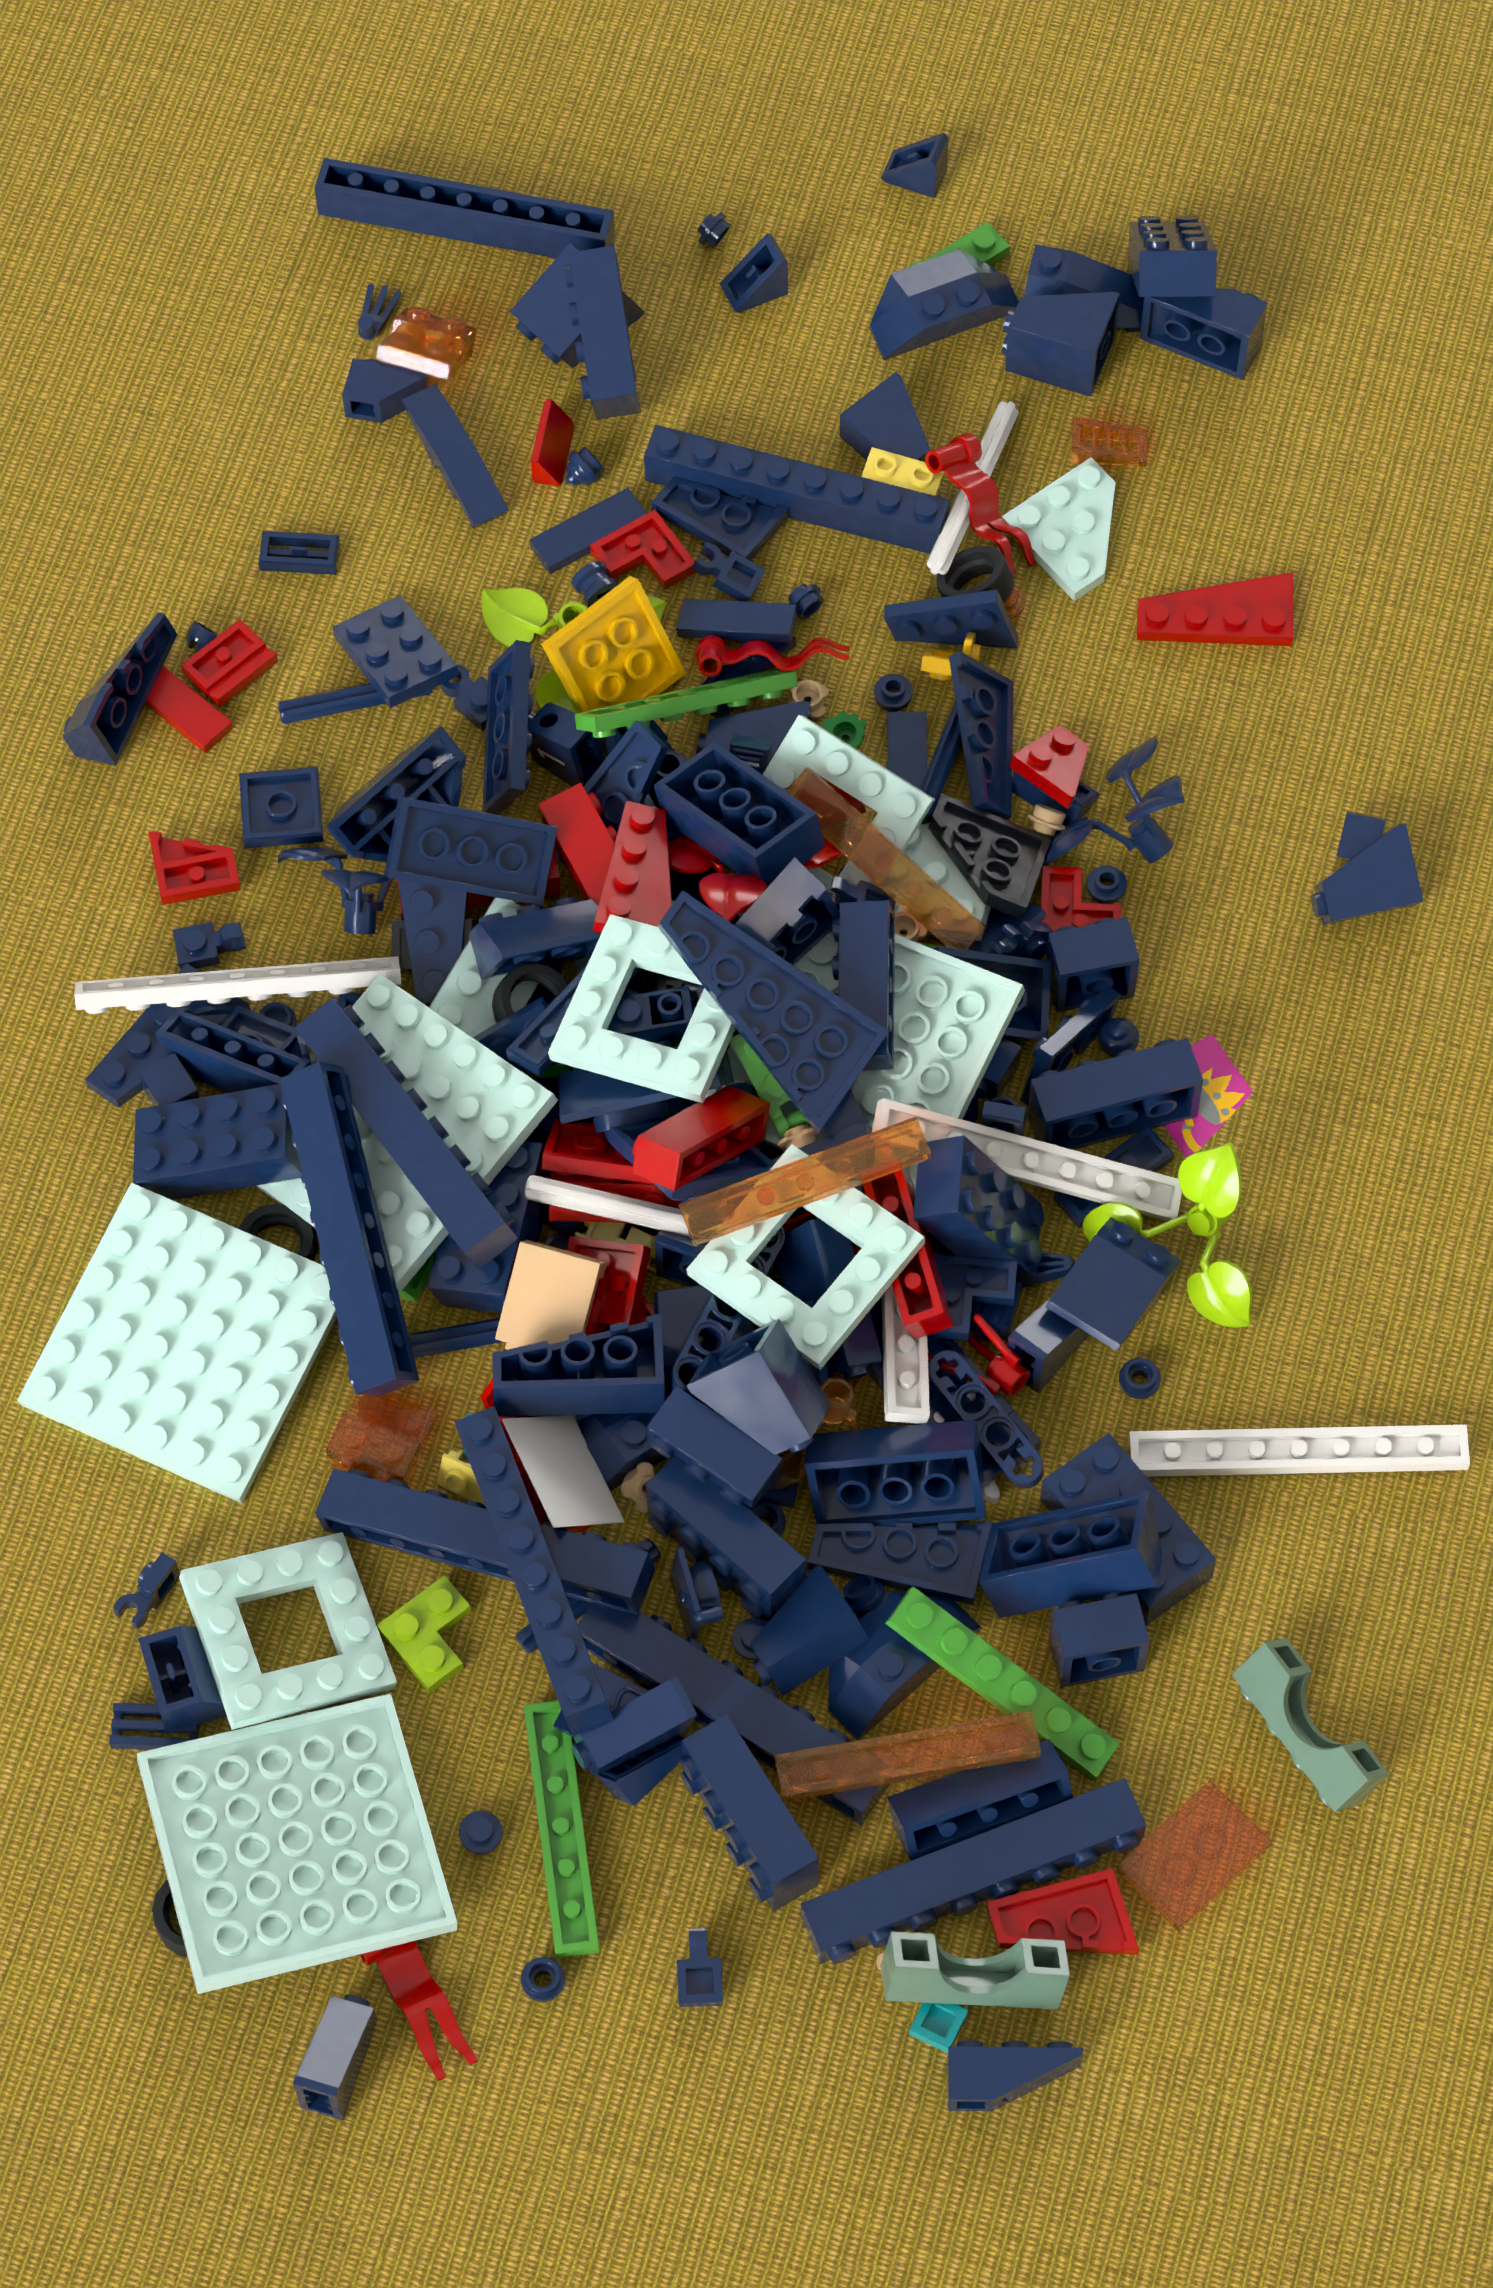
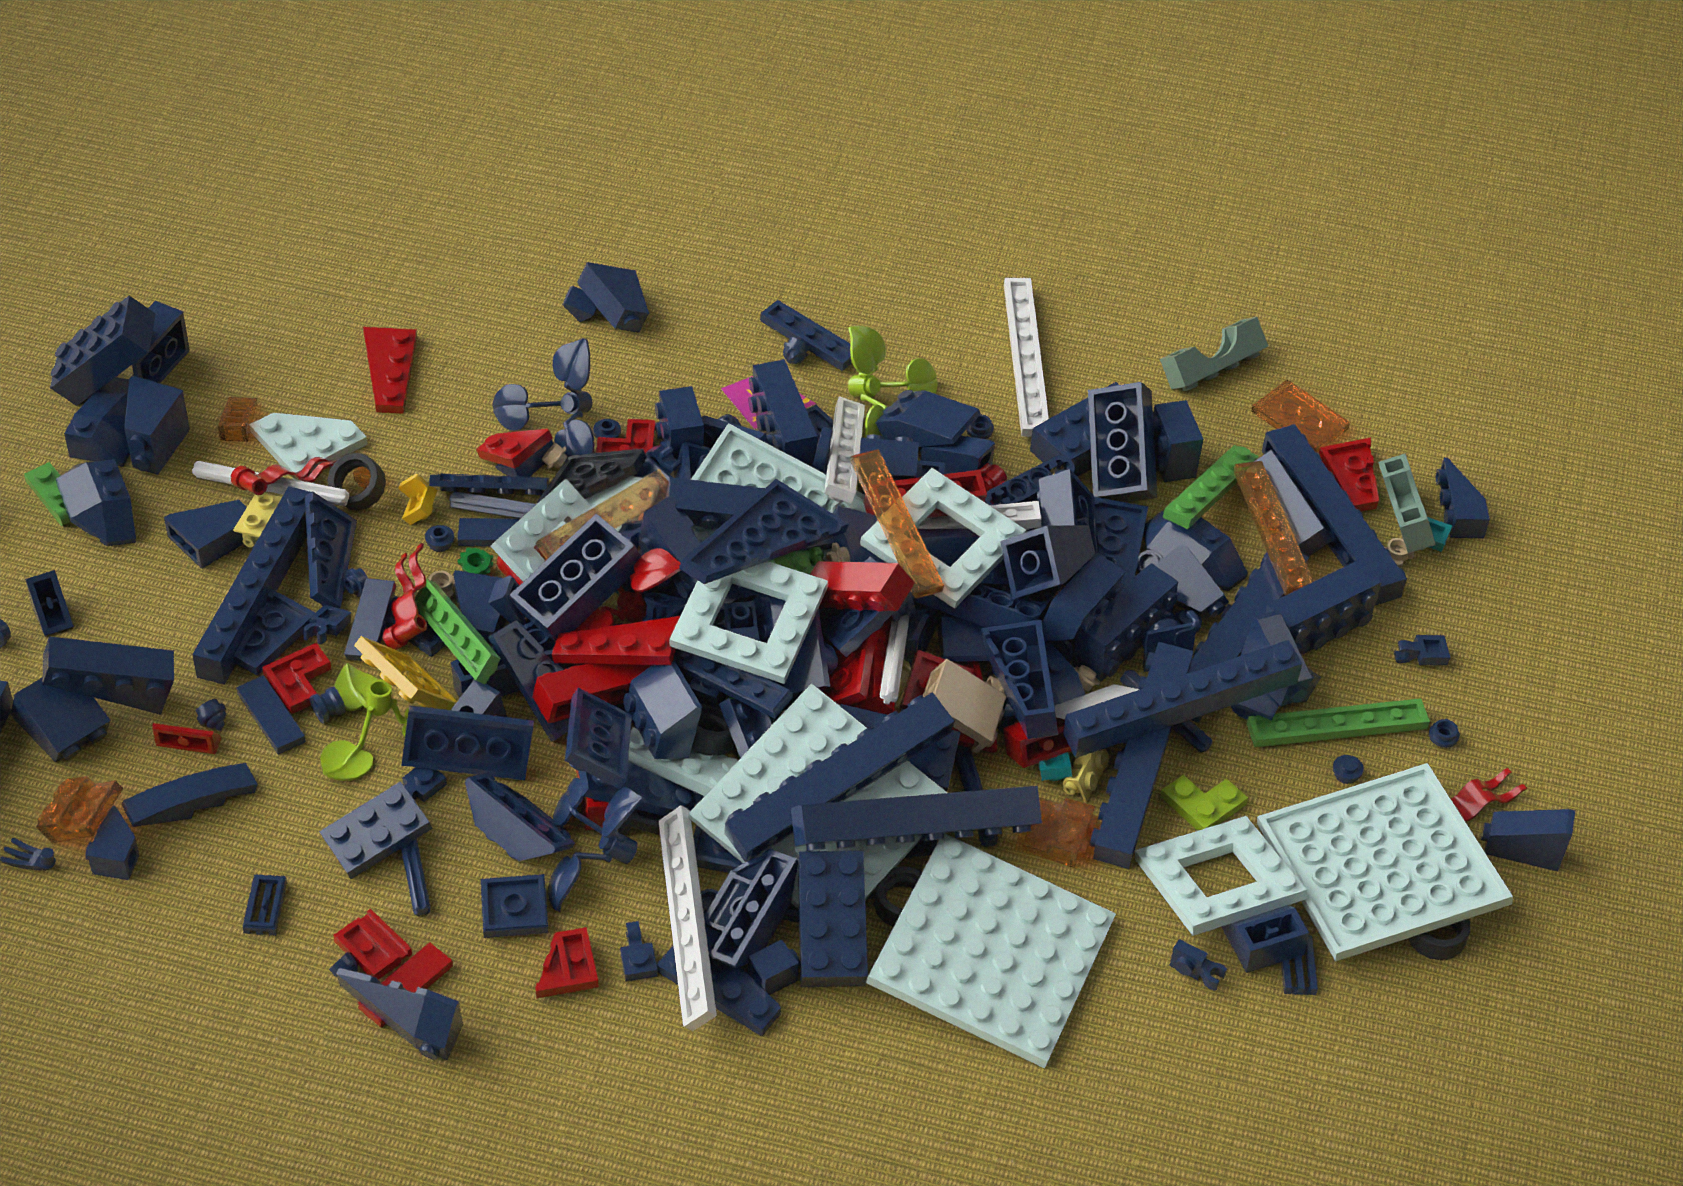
camera: 95 degrees left, 15 degrees down
(859, 562) = (329, 549): none -> dark blue wing
(951, 618) = (387, 495): dark blue wing -> none
(1284, 1125) = (795, 351): none -> dark blue plate
(1320, 1146) = (821, 341): none -> dark blue plate

